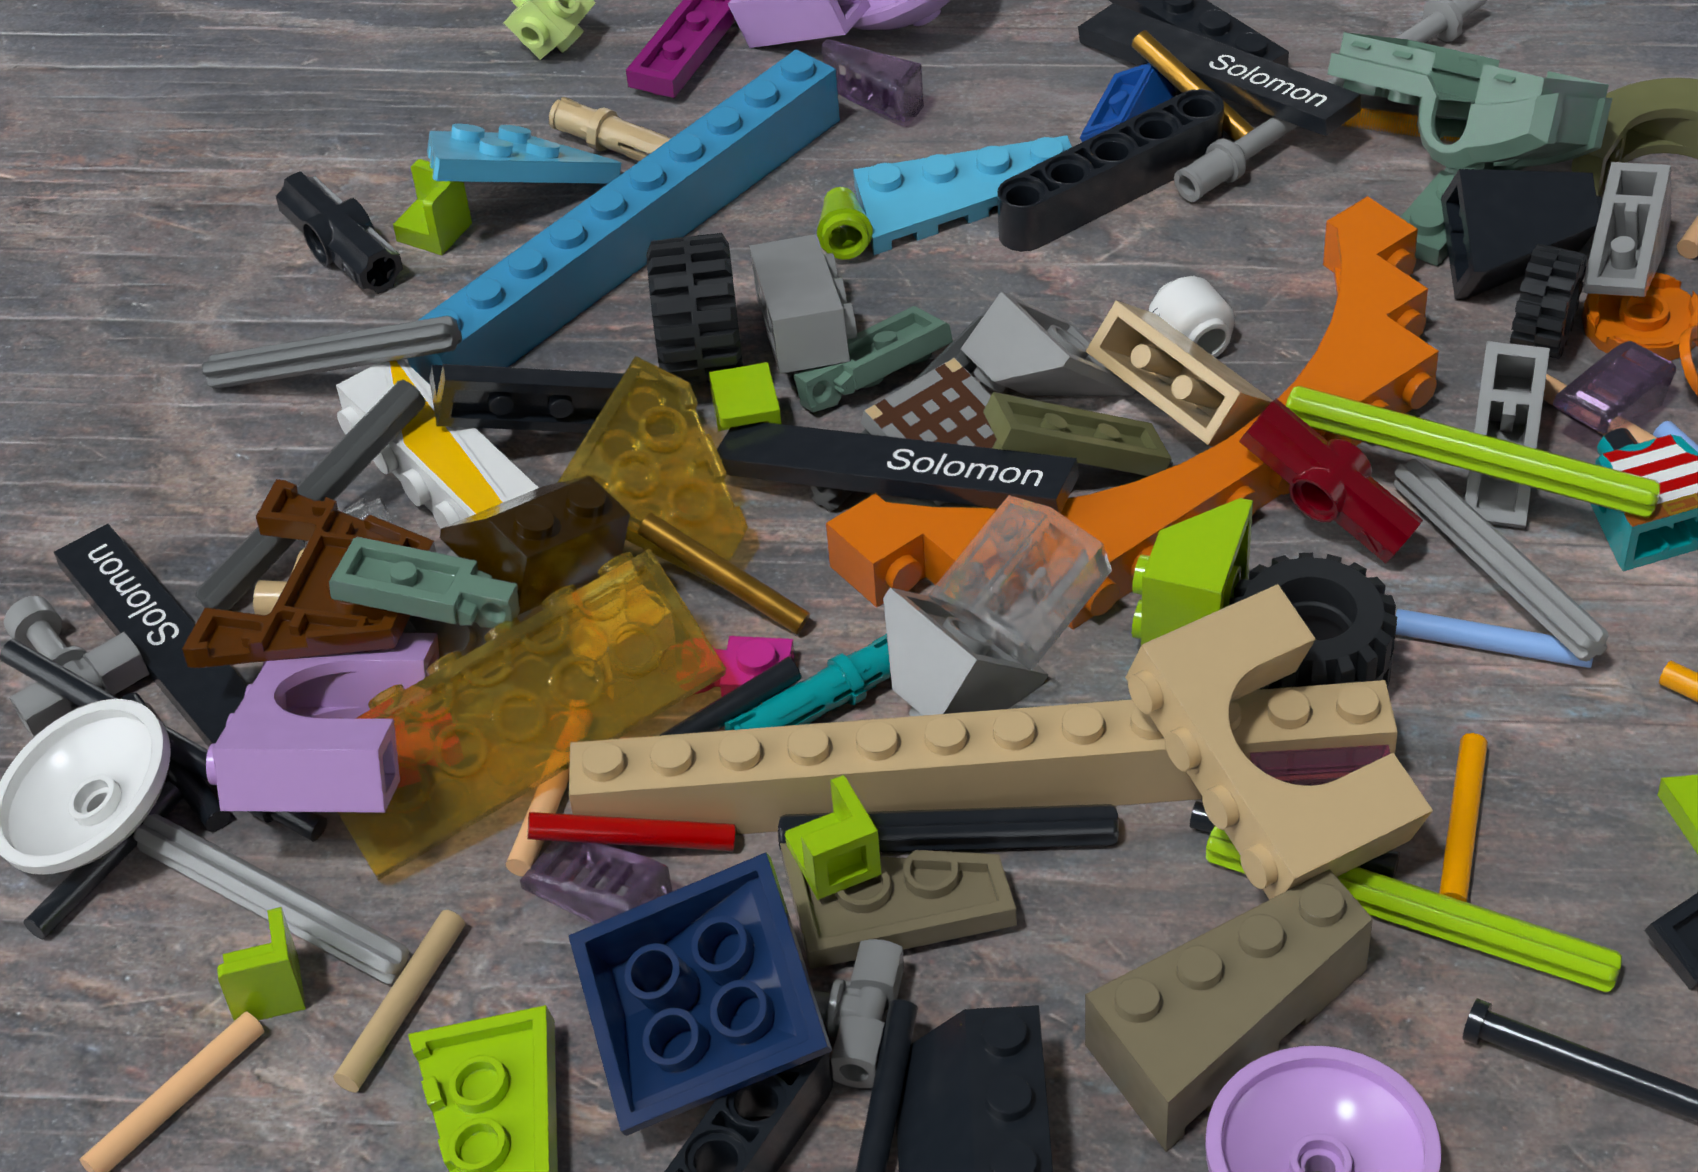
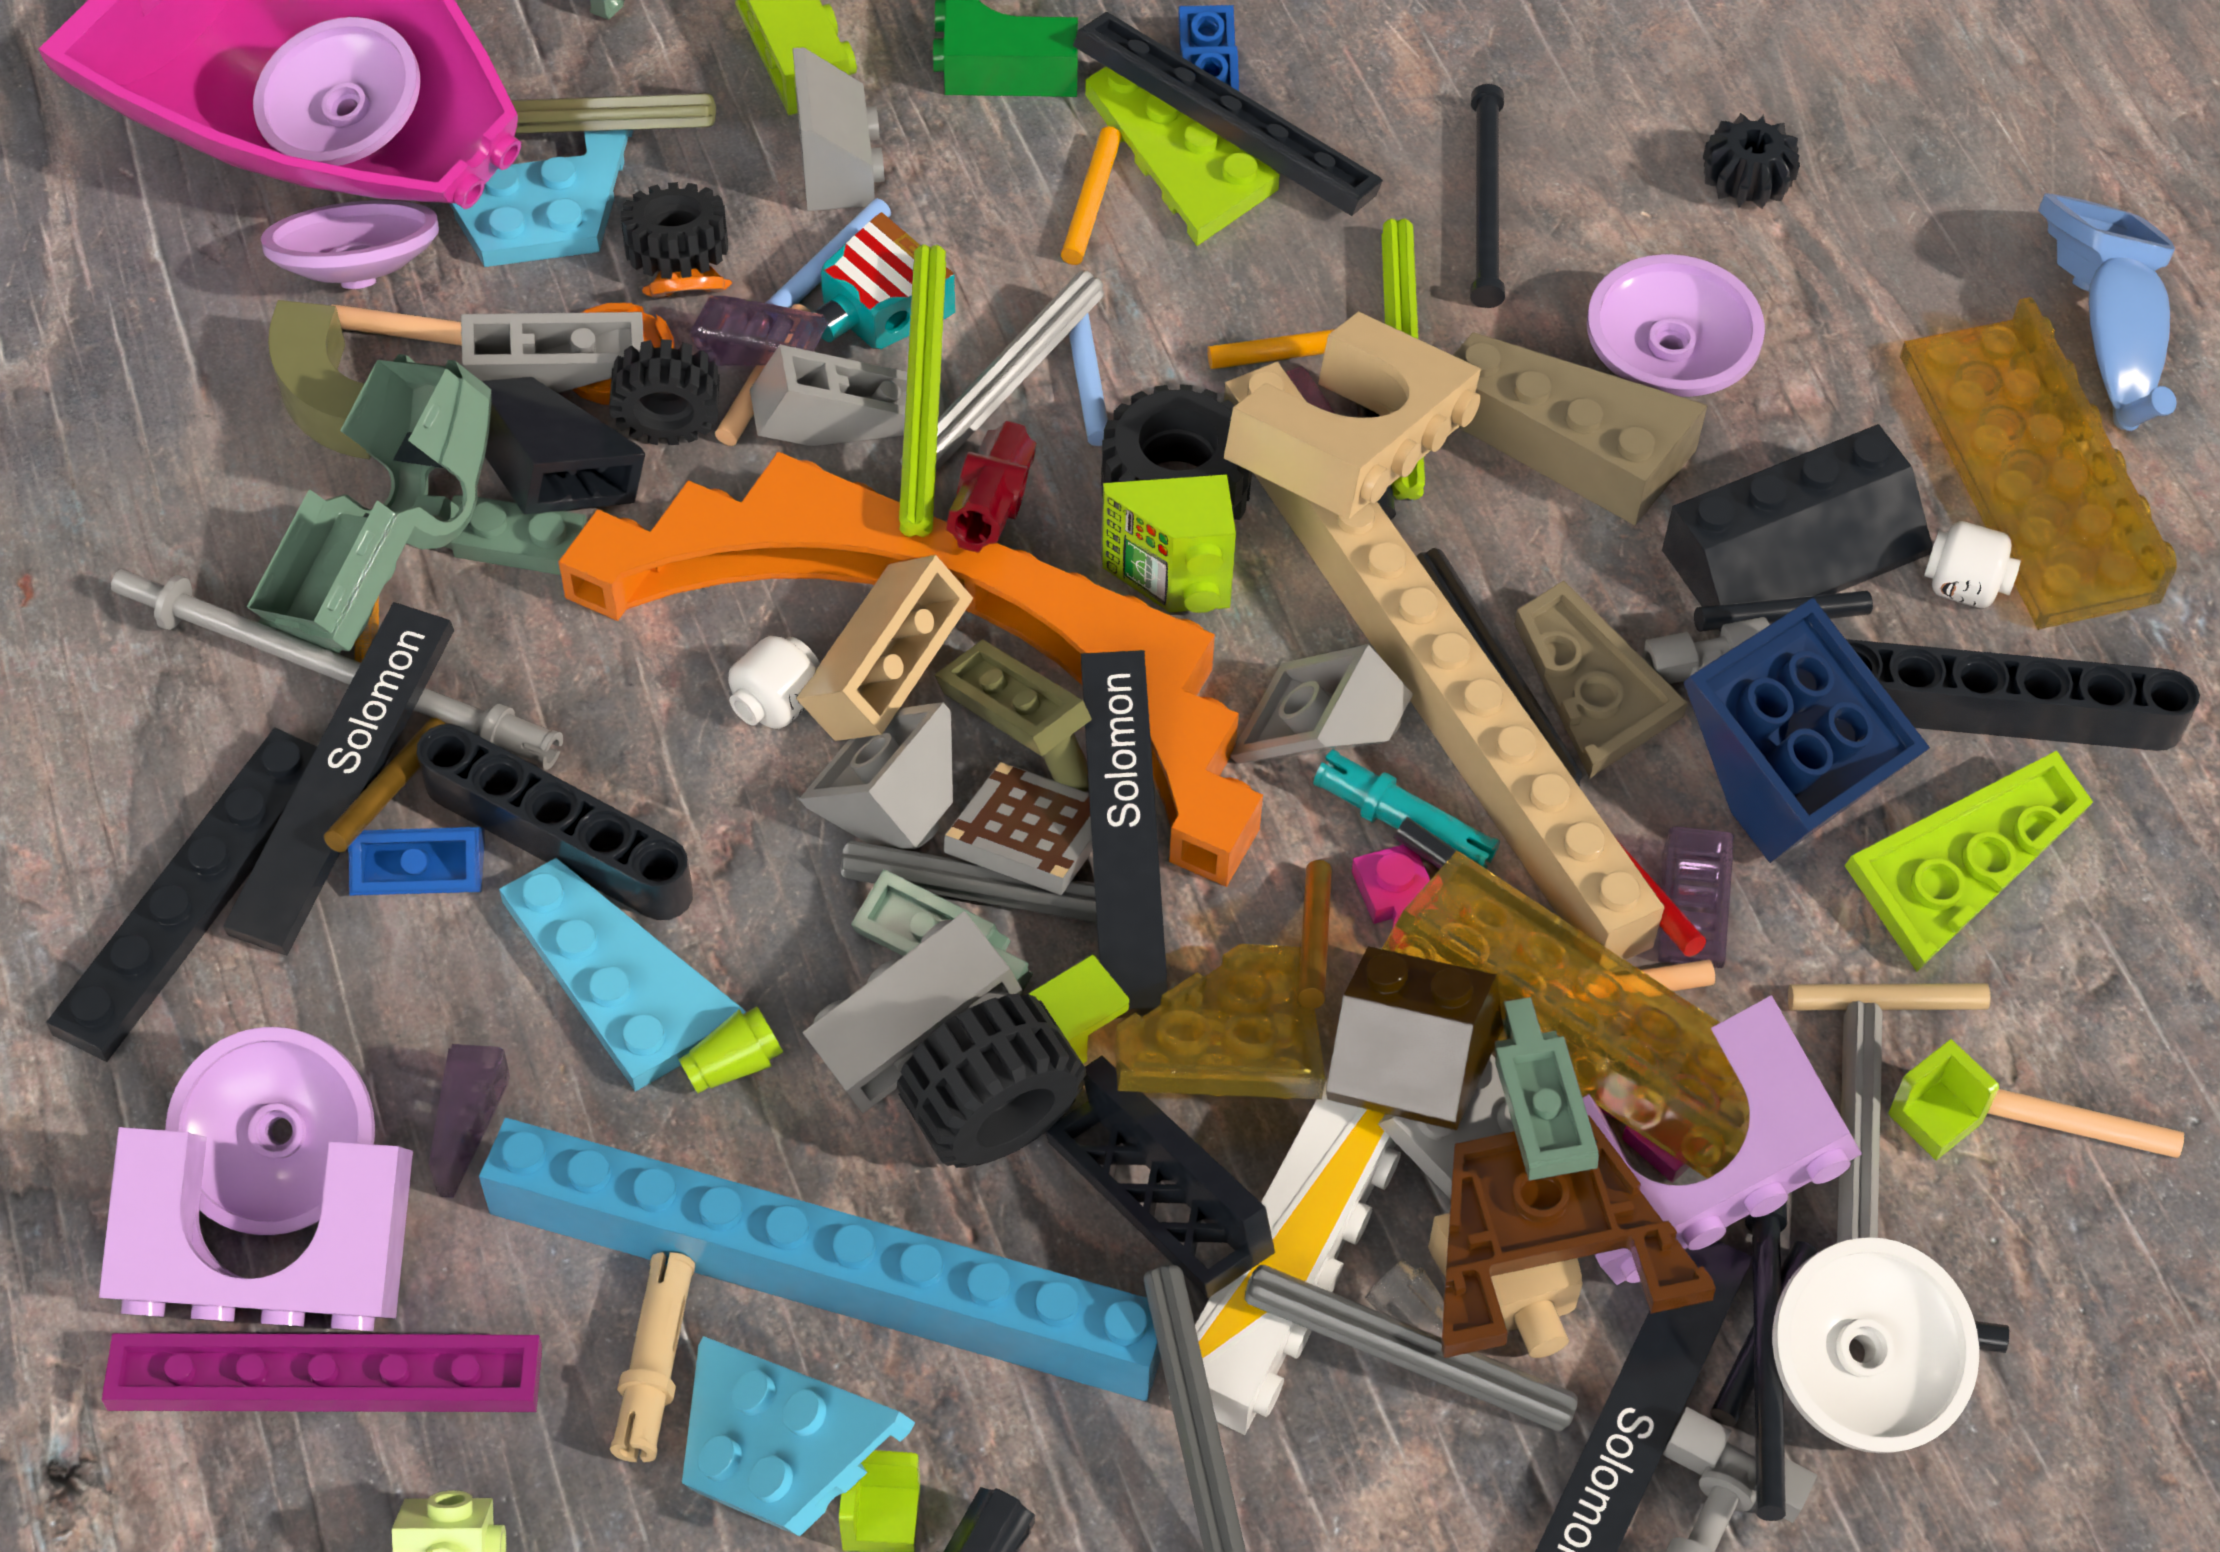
camera: 120 degrees left, 10 degrees up
(837, 847) = (1590, 703): lime panel -> none
(1023, 579) = (1254, 645): clear slope -> none

